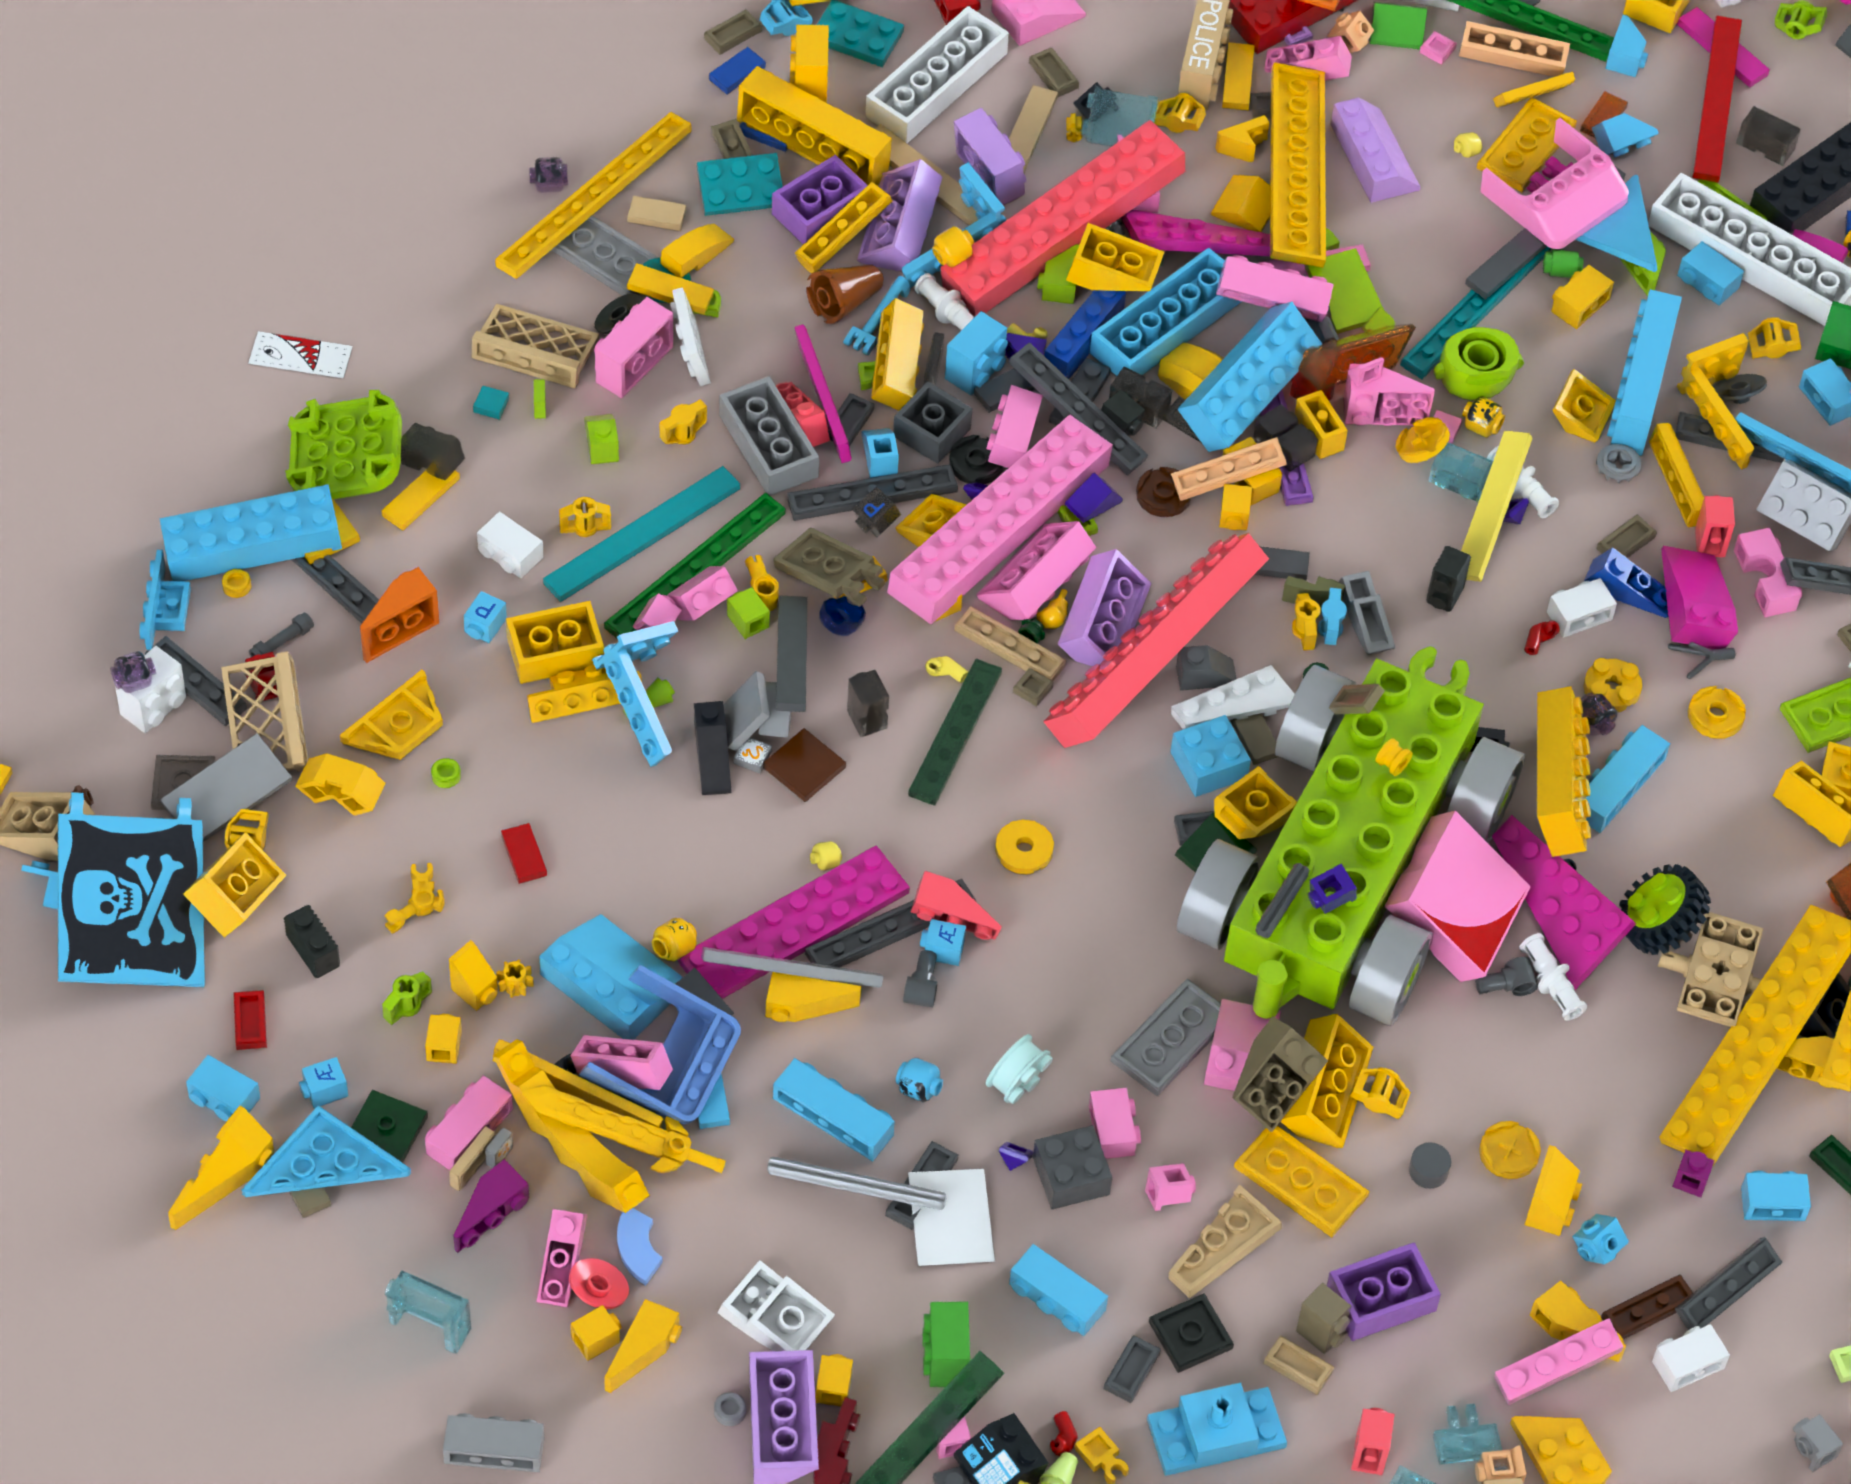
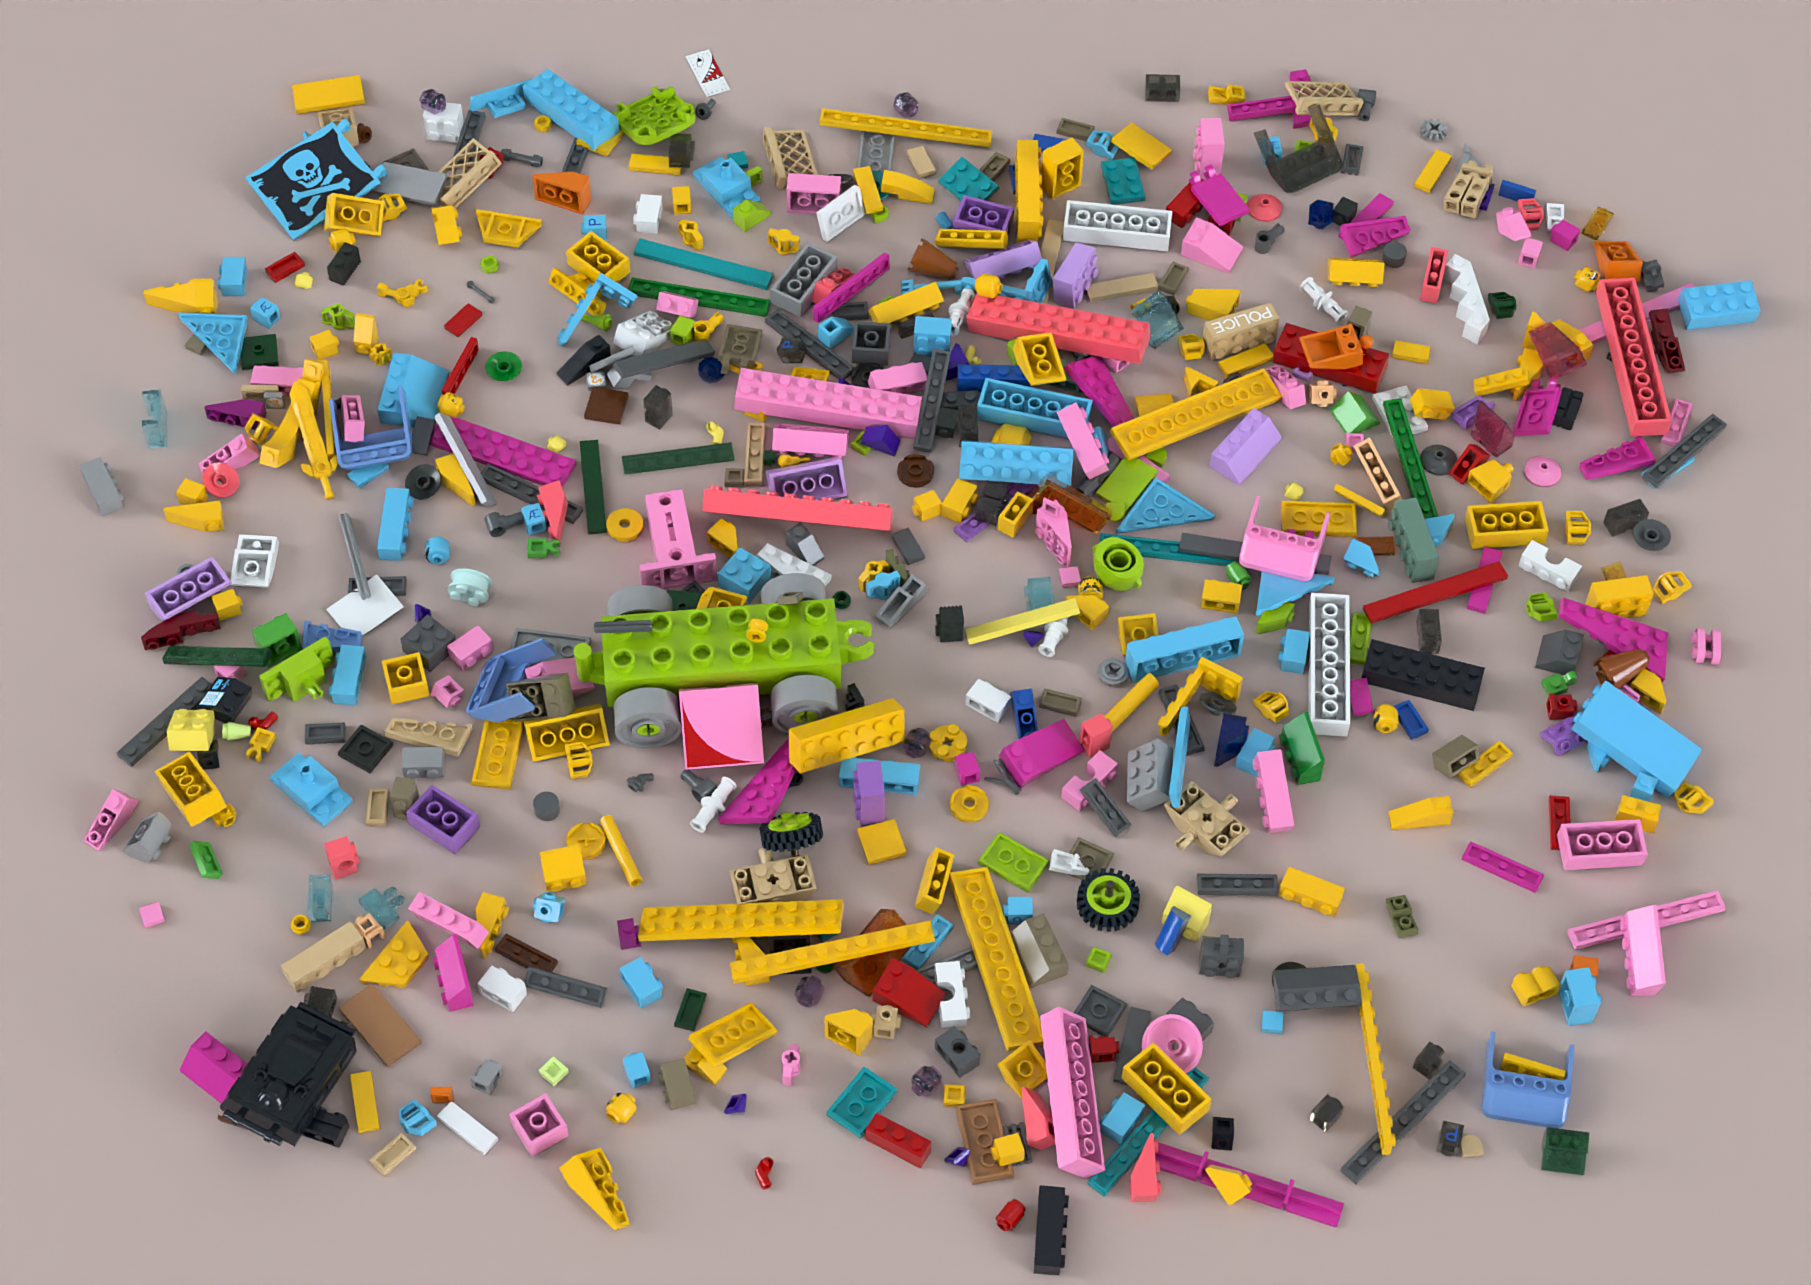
camera: 60 degrees right, 0 degrees up
(266, 923) = (339, 237): none -> yellow head
(293, 1010) = (303, 280): none -> light yellow piece
(369, 384) = (703, 110): none -> dark grey plate
(463, 813) = (470, 284): none -> dark grey hinge
(515, 496) = (681, 200): none -> yellow brick
(527, 435) = (726, 183): none -> medium azure brick
(549, 1187) = (263, 423): none -> yellow piece
(616, 897) = (461, 366): none -> red tile
(635, 1246) = (258, 485): light blue tile -> none
(651, 834) = (503, 366): none -> green dish
(657, 611) = (647, 294): bright pink brick -> none
(717, 658) = (643, 332): none -> white slope
(781, 243) = (941, 220): none -> medium azure piece
(790, 1024) = (419, 476): none -> pearl dark grey dish
(933, 849) = (593, 487): none -> dark green tile
(980, 1281) = (336, 636): none -> medium blue wing
(999, 960) = (539, 548): none -> bright green plate
(1029, 1341) = (299, 673): none -> lime brick
(1105, 802) = (673, 545): none -> bright pink brick
(1117, 1222) = (405, 678): none -> yellow brick
(1133, 55) = (1212, 302): none -> yellow slope
(1135, 746) = (723, 537): none -> yellow slope
(1204, 1119) = (490, 695): none -> medium blue windscreen
(1228, 469) = (944, 486): light nougat tile -> none
(1267, 1271) = (423, 762): none -> light grey brick
(1335, 881) = (645, 644): dark purple brick -> none
(1407, 277) = (1162, 508): none -> medium azure tile
(1423, 440) = (1045, 567): yellow tile -> none
(1453, 67) = (1340, 454): none -> yellow gear
(1461, 1044) = (637, 783): none -> dark grey plate
(1514, 421) = (1092, 610): none -> yellow slope
(1540, 633) = (955, 690): red arm -> none
(1554, 1117) = (621, 850): none -> yellow piece
(1635, 71) = (1413, 540): none -> sand green brick
(1641, 1398) = (453, 975): none -> slope
(1663, 795) = (869, 793): none -> medium lavender brick
(1668, 683) = (967, 768): none -> dark pink brick
(1716, 831) = (881, 841): none -> yellow tile
(1804, 402) = (1231, 738): none -> clear blue slope

